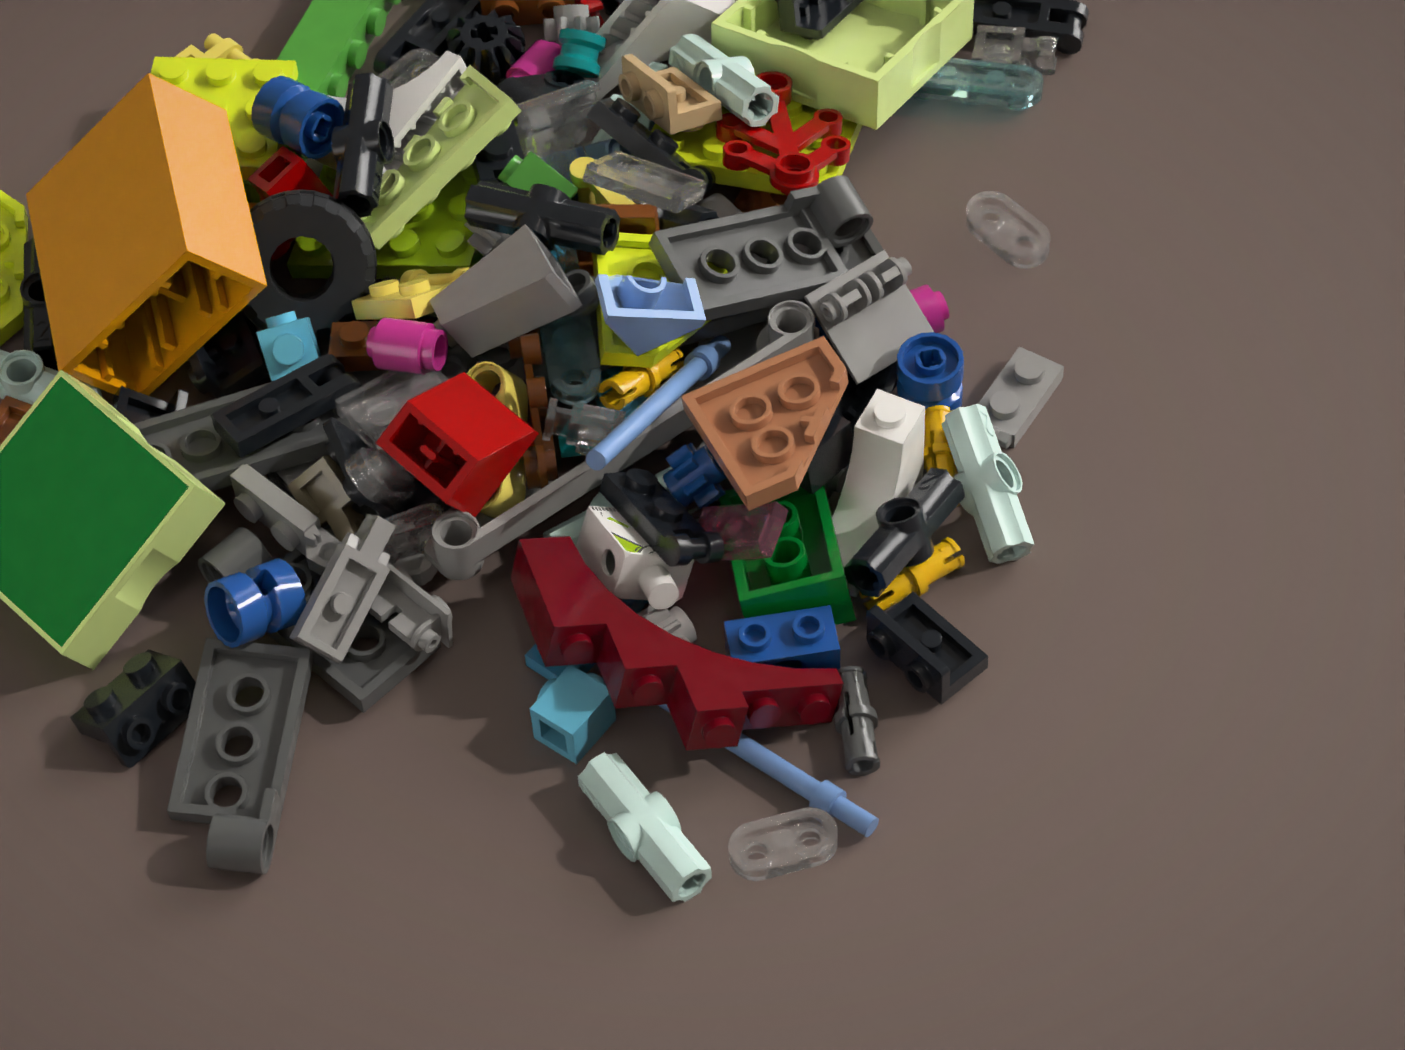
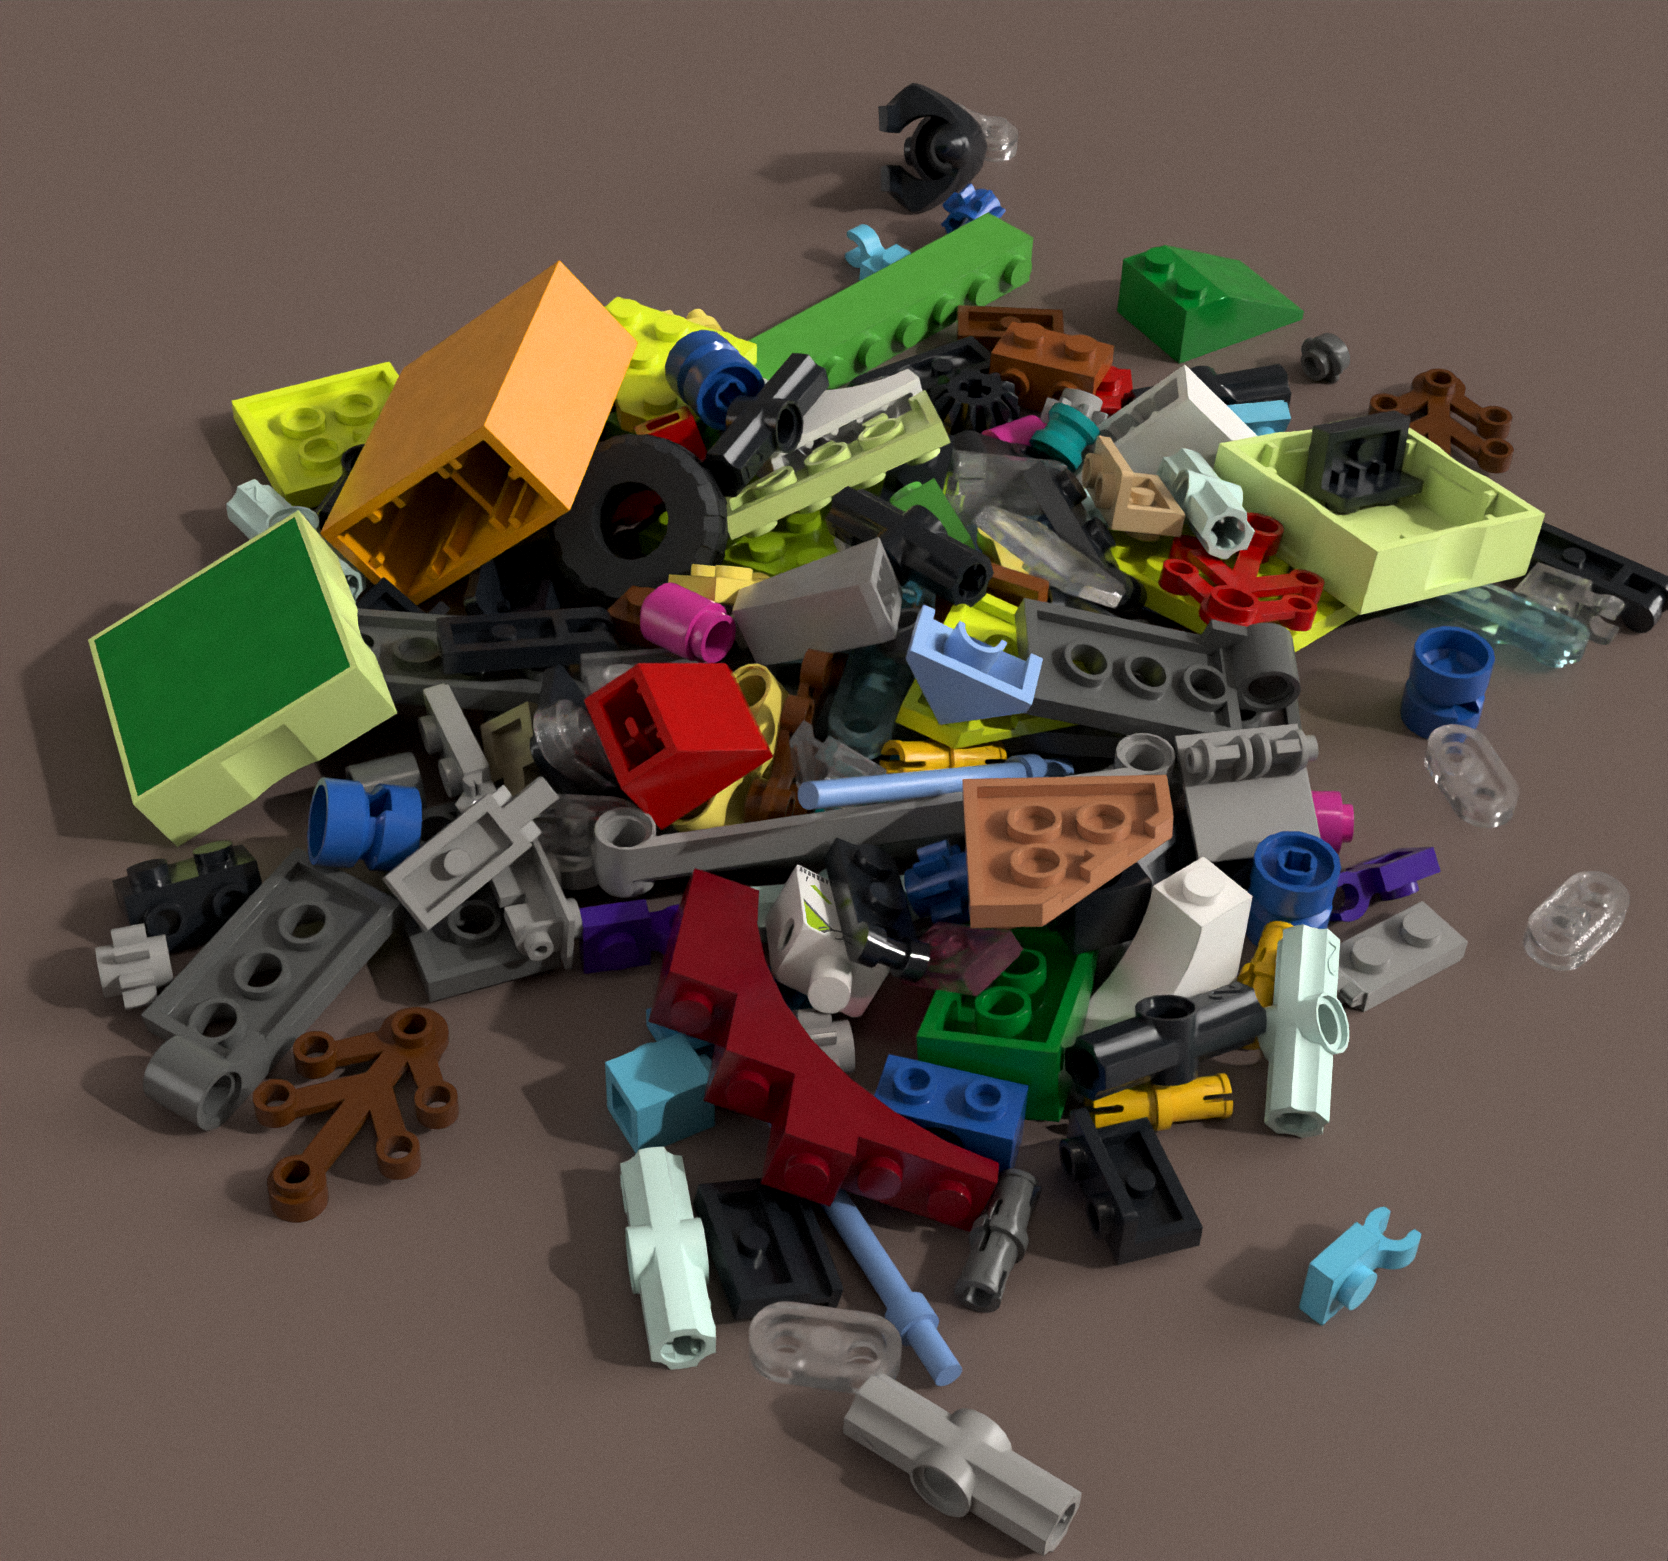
camera: 20 degrees right, 10 degrees down
(139, 776) = (134, 966): none -> light grey gear
(287, 344) = (574, 583): medium azure brick -> none
(364, 803) = (406, 1042): none -> reddish brown plant
(479, 603) = (622, 935): none -> dark purple plate
(706, 792) = (765, 1246): none -> black plate
(911, 881) = (962, 1463): none -> light grey piece
(960, 159) = (1446, 680): none -> blue wheel
(986, 335) = (1389, 874): none -> dark purple plate
(1093, 647) = (1345, 1269): none -> medium azure plate
(1132, 308) = (1576, 920): none -> clear plate

